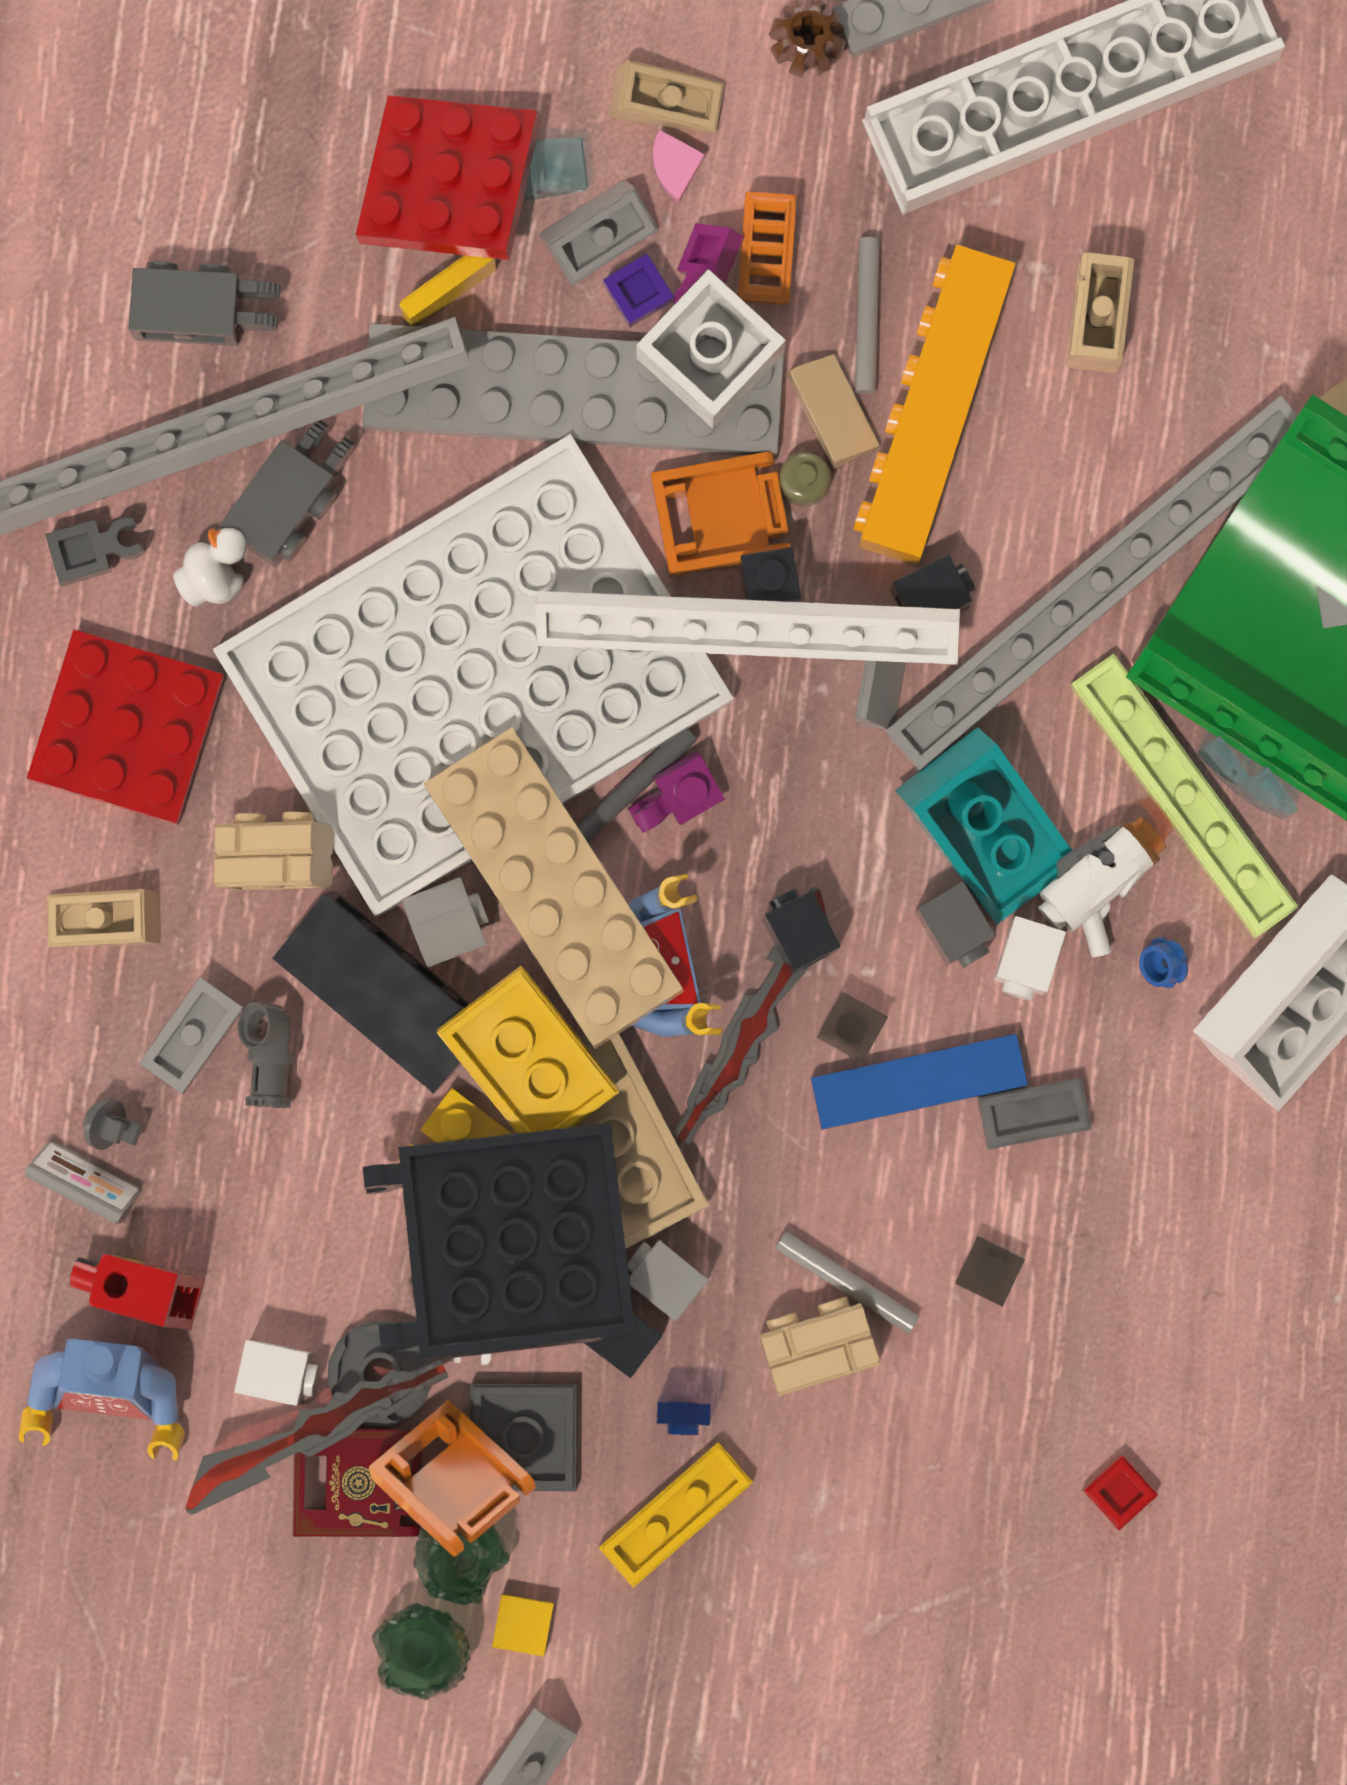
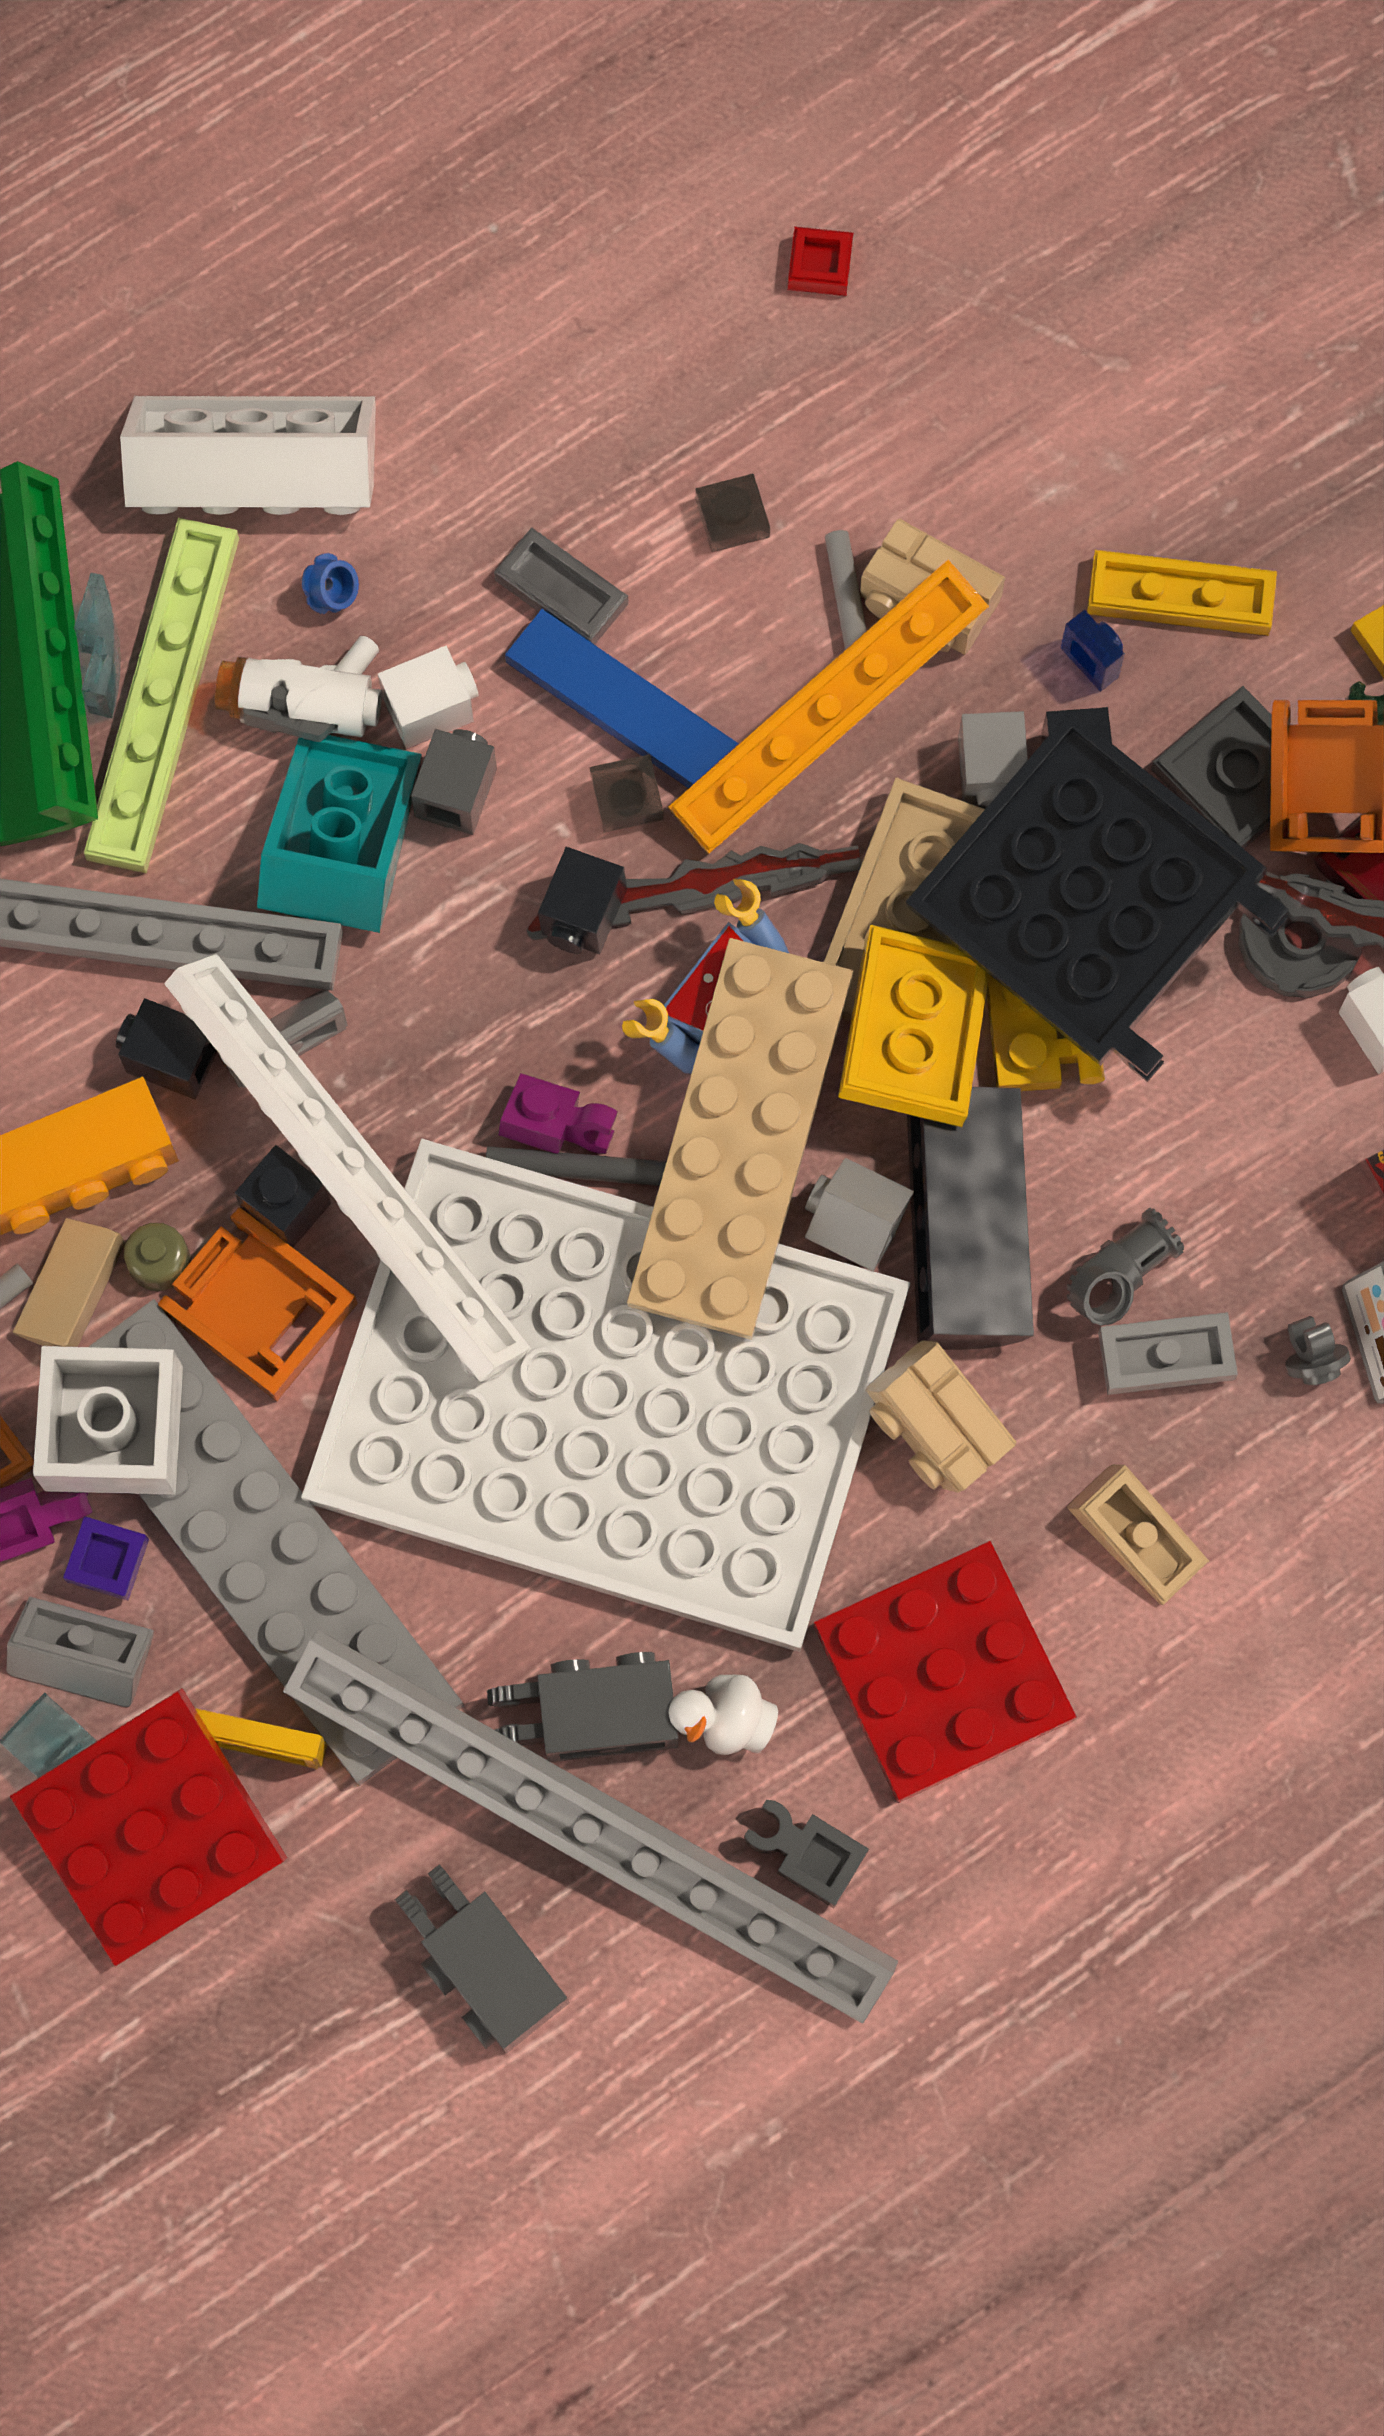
camera: 130 degrees left, 10 degrees down
(790, 1202) = (828, 706): none -> light orange tile

